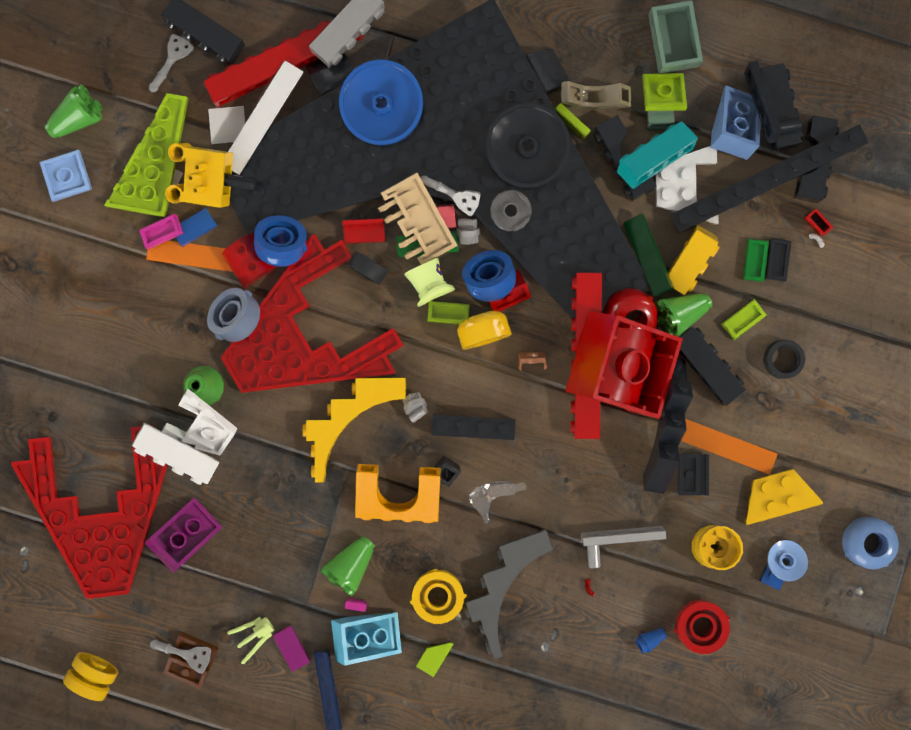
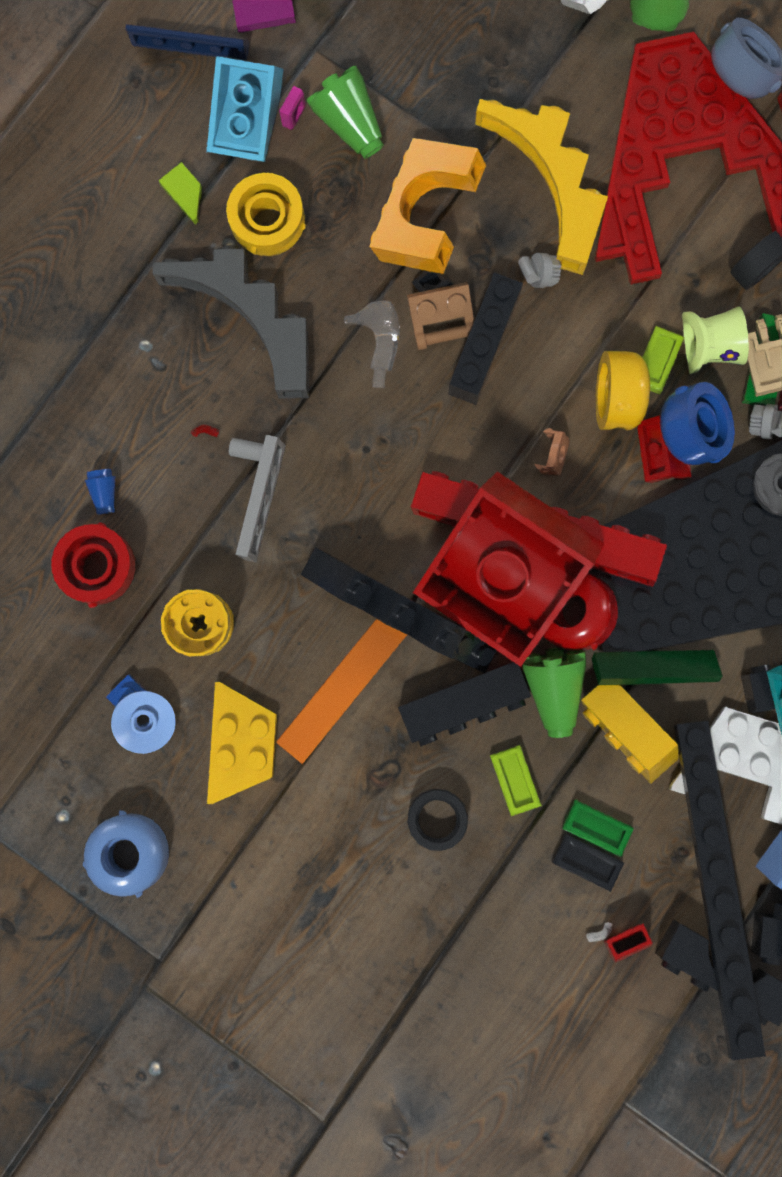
camera: 120 degrees right, 5 degrees down
(461, 462) = (440, 306): none -> medium nougat plate
(693, 474) = (313, 628): black plate -> none

